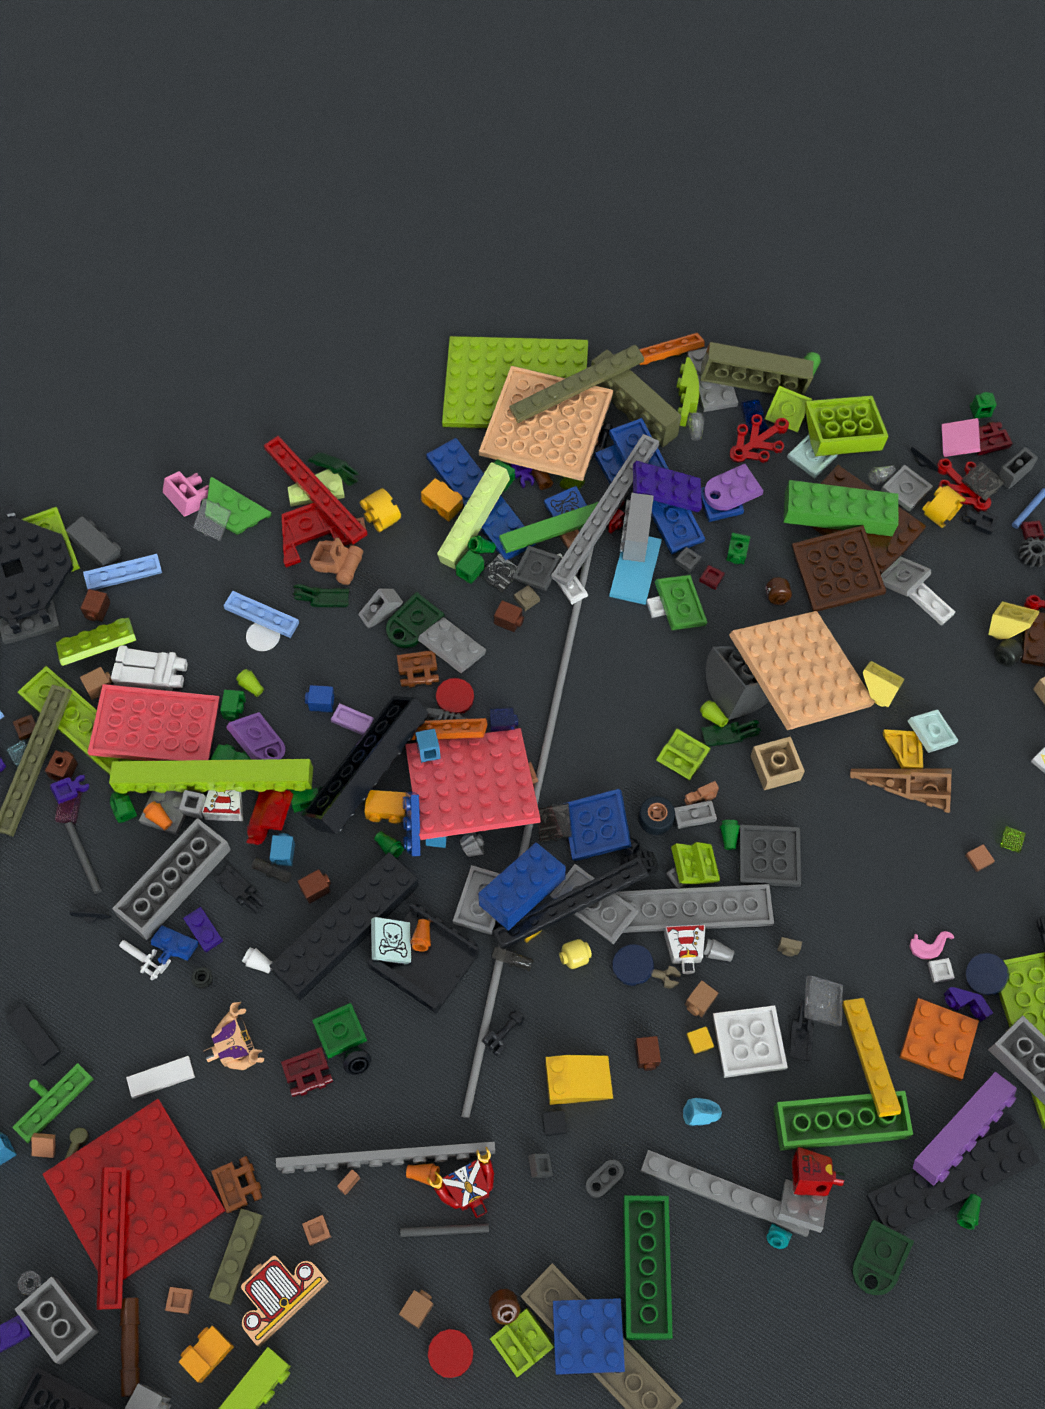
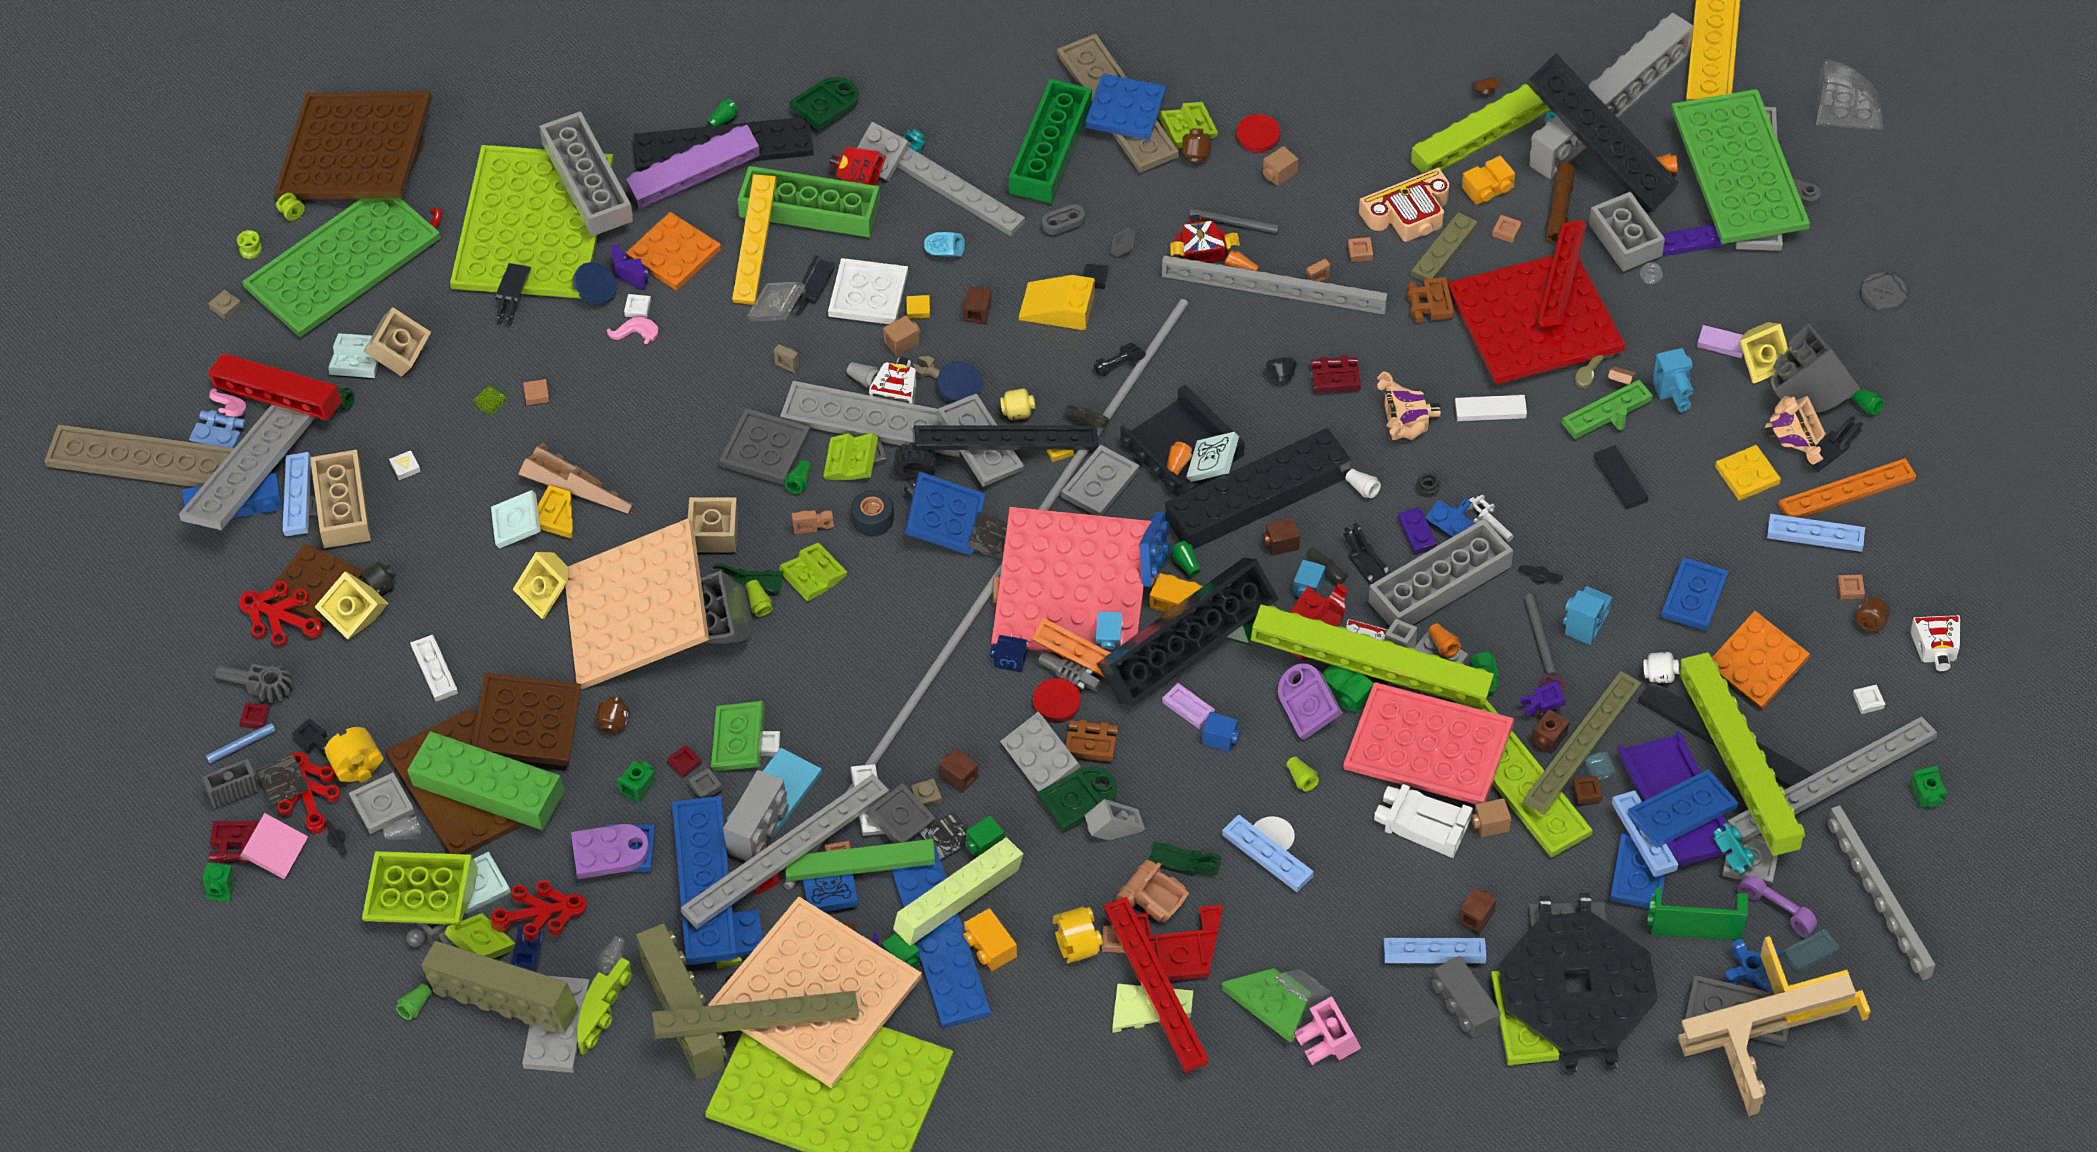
camera: 160 degrees left, 10 degrees down
(44, 877) = (1586, 614): none -> dark azure brick
(95, 641) = (1484, 864): lime plate -> none
(232, 704) = (1329, 751): green brick -> none
(336, 466) = (1123, 1026): dark green arm -> none
(339, 1030) = (1291, 397): green plate -> none
(480, 545) = (959, 859): green cone -> none
(522, 886) = (1052, 464): blue brick -> none
(667, 486) = (695, 856): dark purple plate -> none
(671, 348) = (596, 1076): orange plate -> none
(695, 814) = (837, 503): light grey plate -> none
(905, 576) = (450, 689): light grey plate -> none

